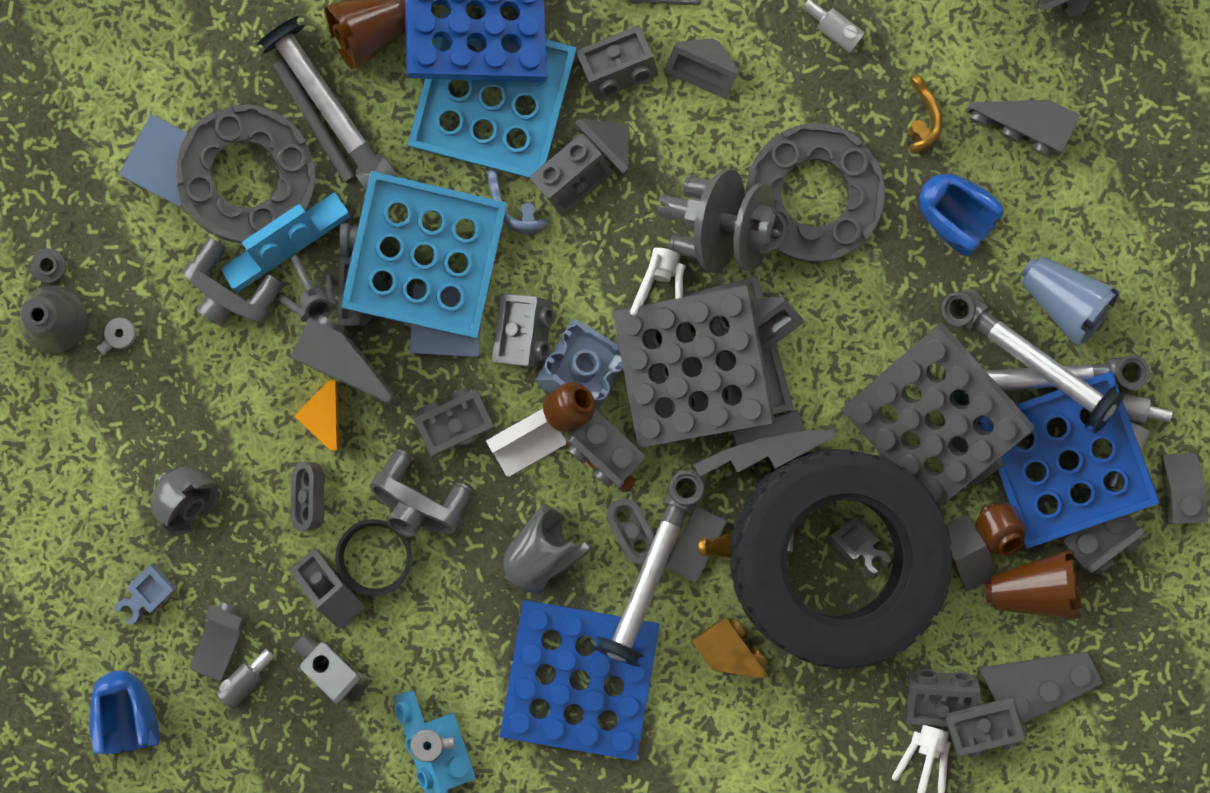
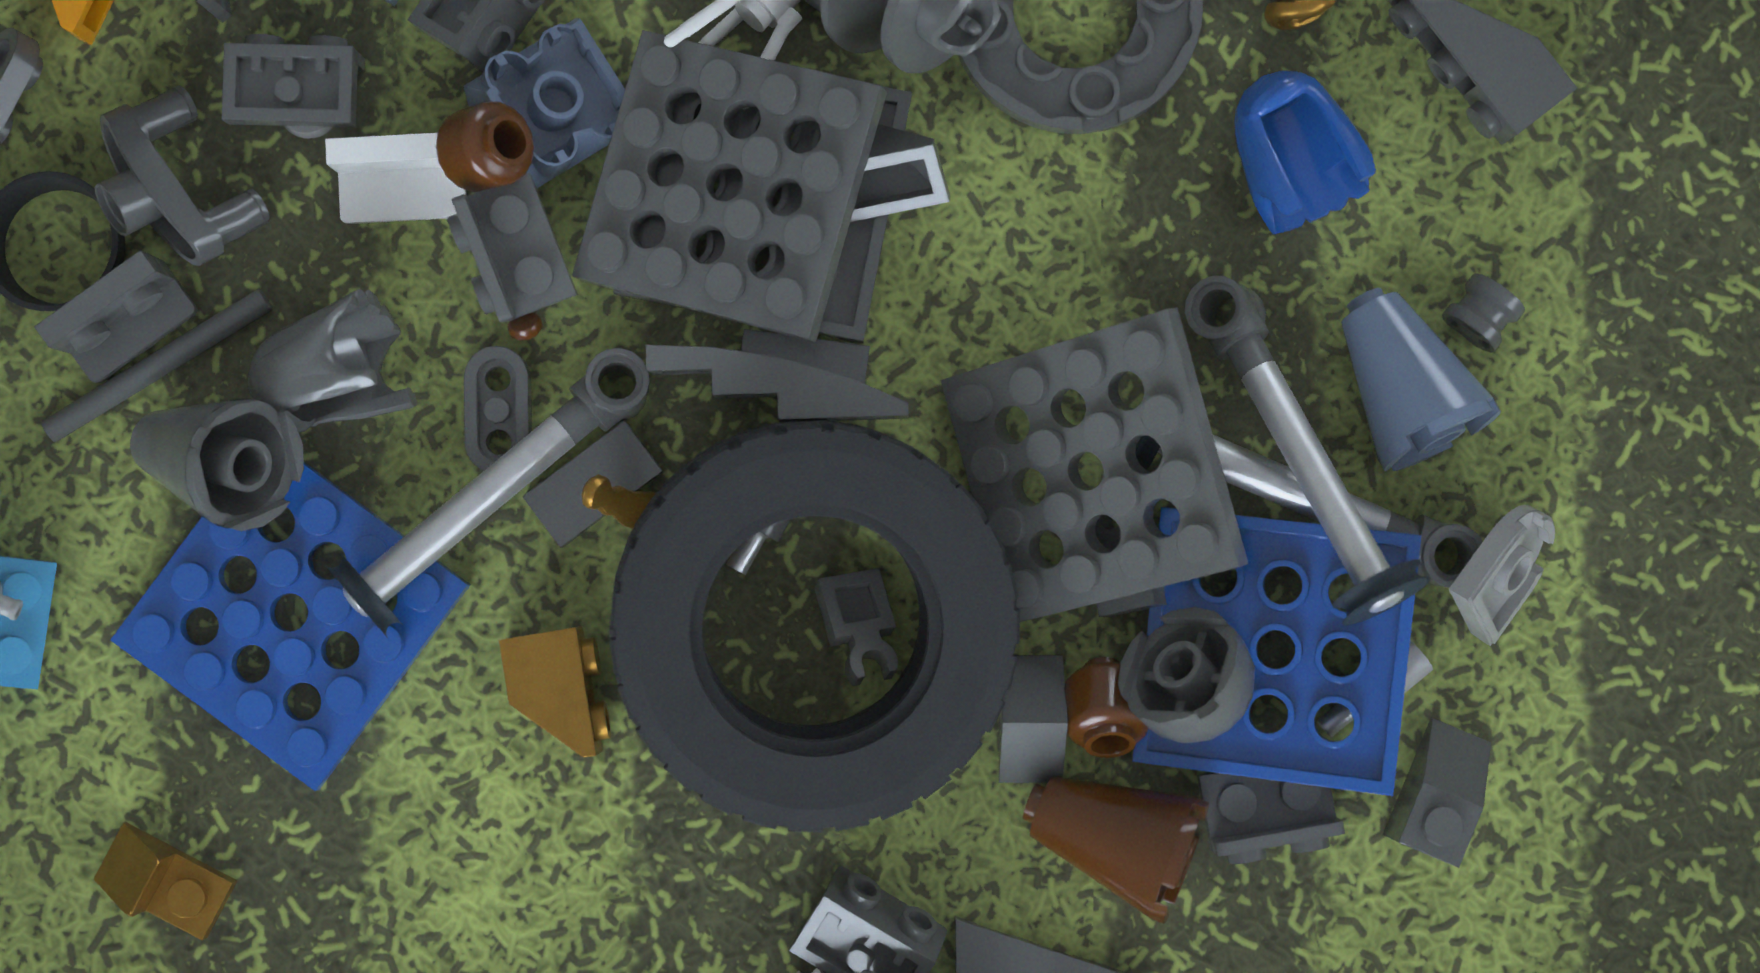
camera: 20 degrees right, 0 degrees up
(427, 577) = (119, 316): none -> dark grey bracket
(452, 592) = (156, 365): none -> dark grey bar
(514, 620) = (223, 459): none -> dark grey cone
(1033, 494) = (1188, 676): none -> dark grey cylinder
(1089, 244) = (1483, 312): none -> dark grey wheel
(1140, 409) = (1434, 626): light grey piece -> none
(1160, 368) = (1502, 572): none -> light grey tile

